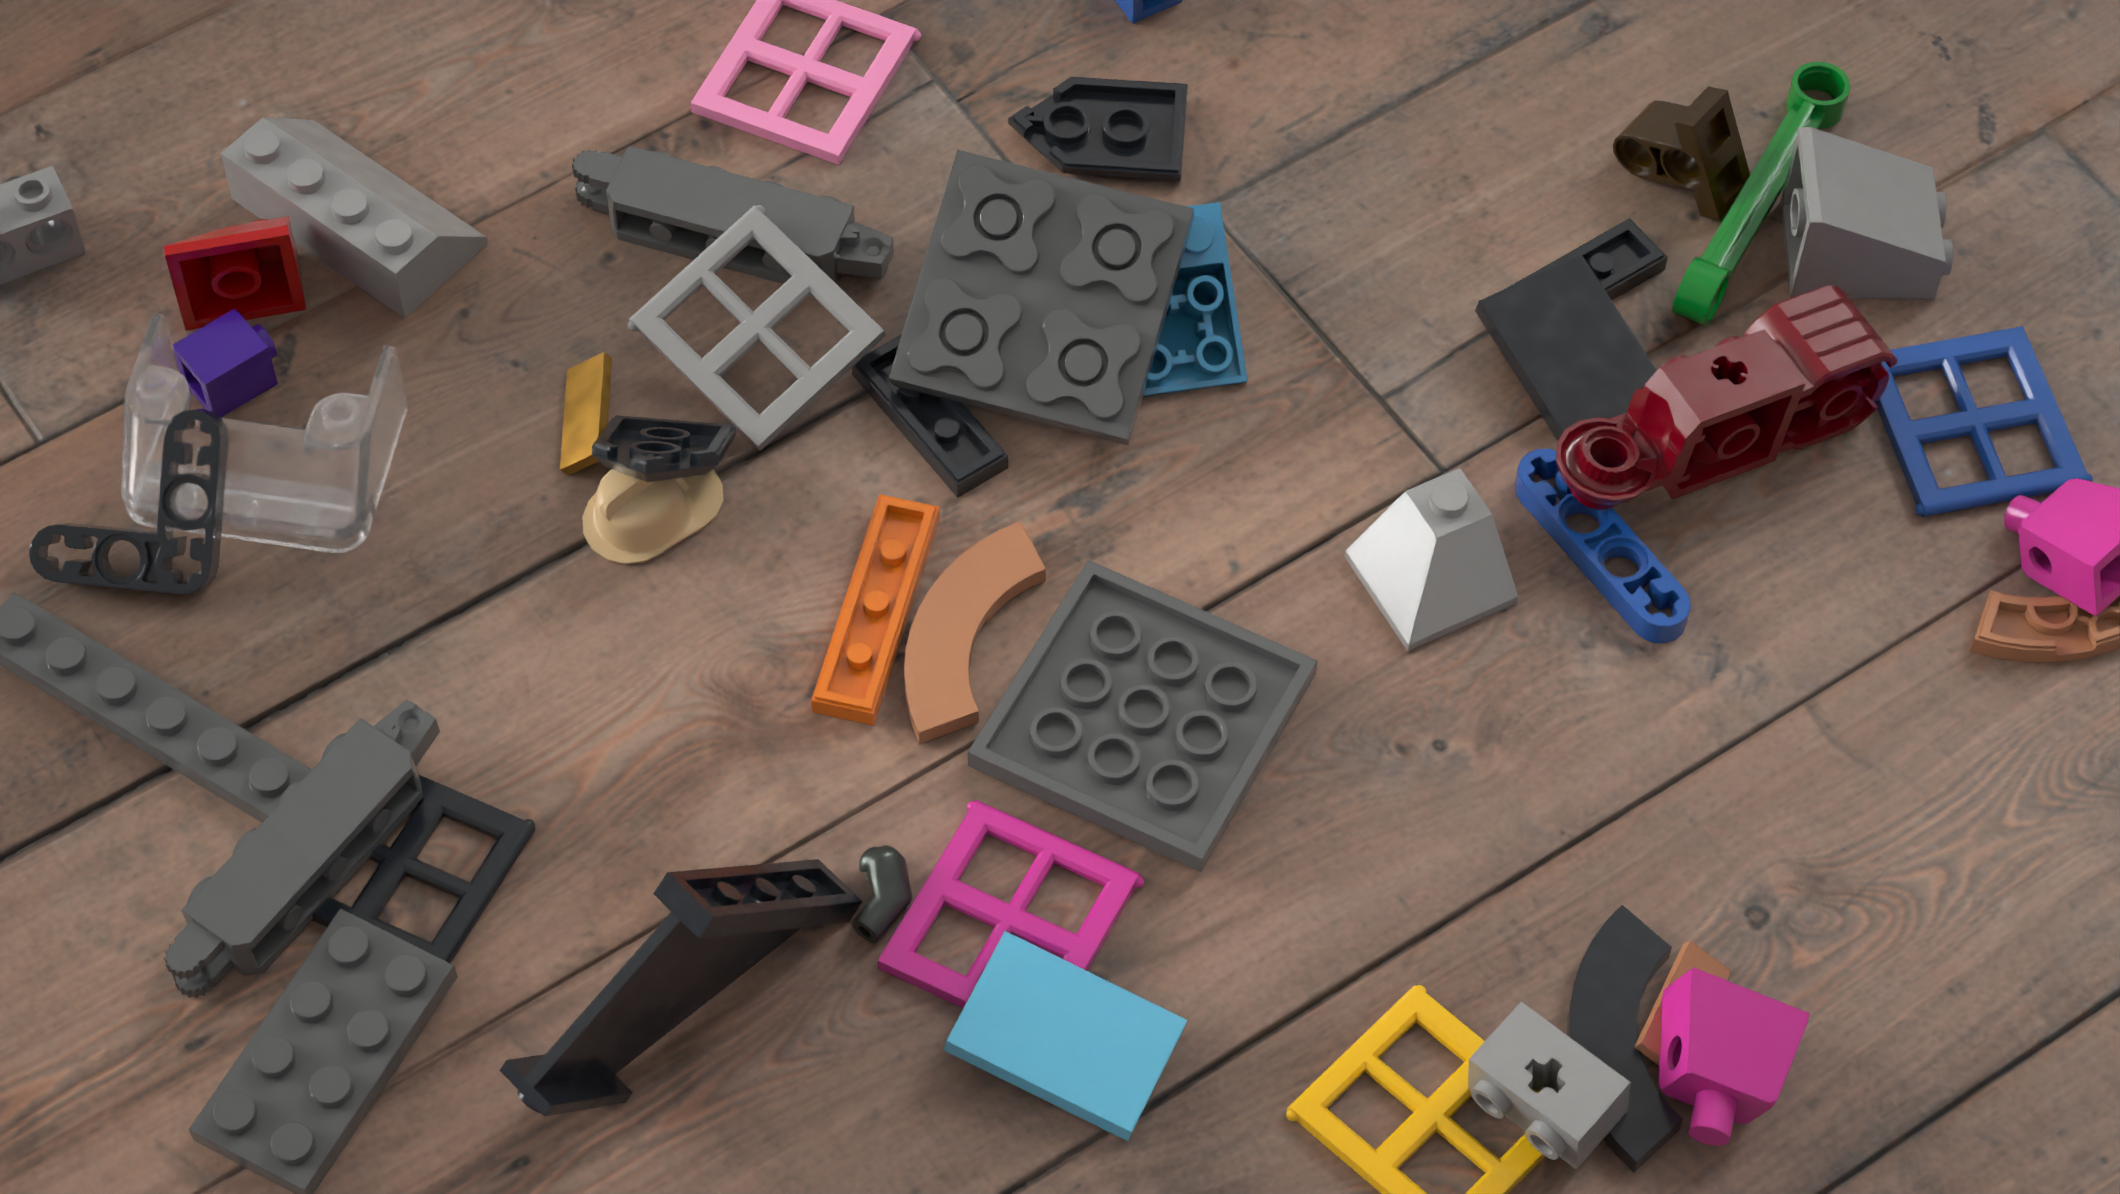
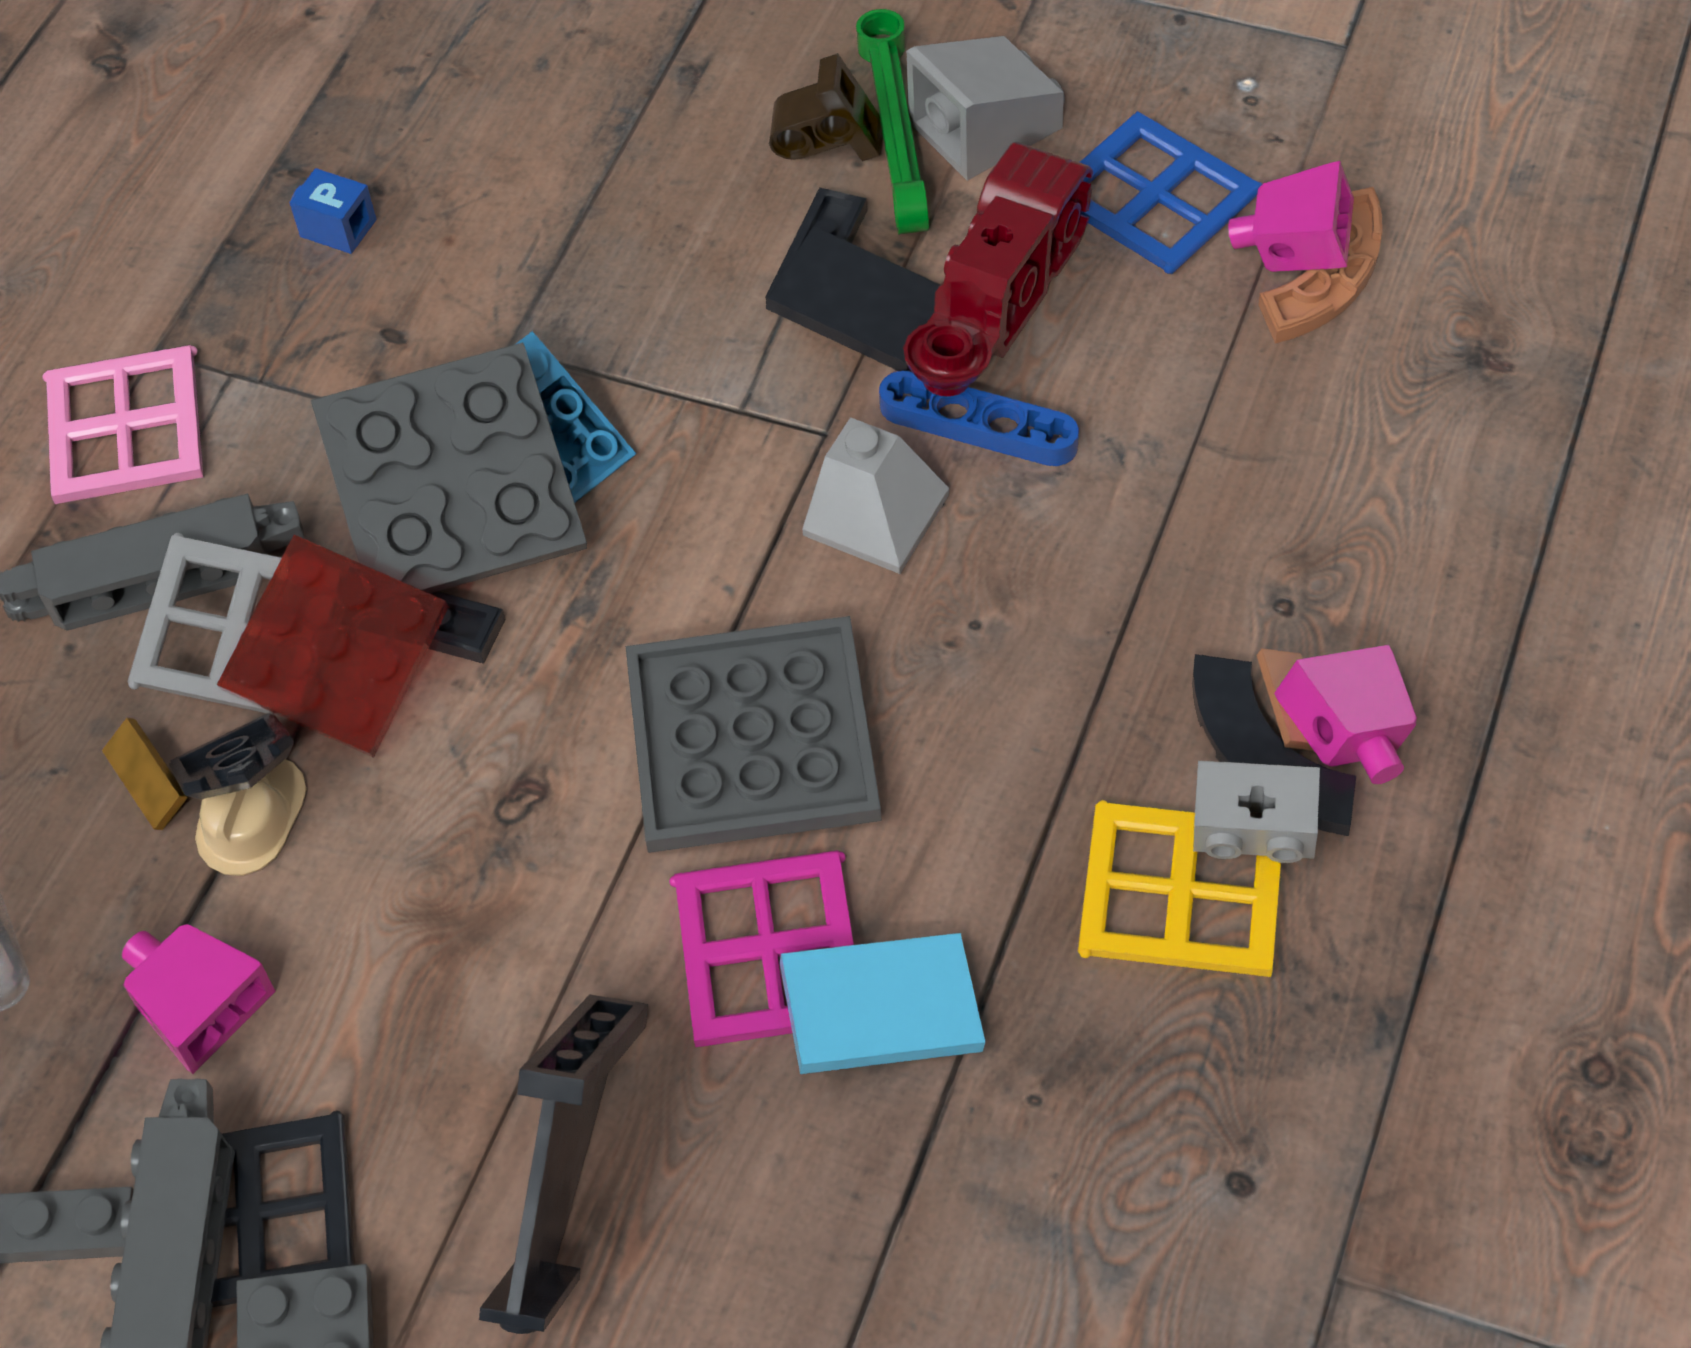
camera: 30 degrees left, 0 degrees up
(485, 635) = (193, 990): none -> dark pink torso
(825, 396) = (333, 645): none -> clear red plate
(875, 610) = (488, 783): orange tile -> none
(890, 890) = (665, 983): pearl dark grey arm -> none
(949, 622) = (553, 759): nougat tile -> none
(1109, 127) = (394, 333): black tile -> none

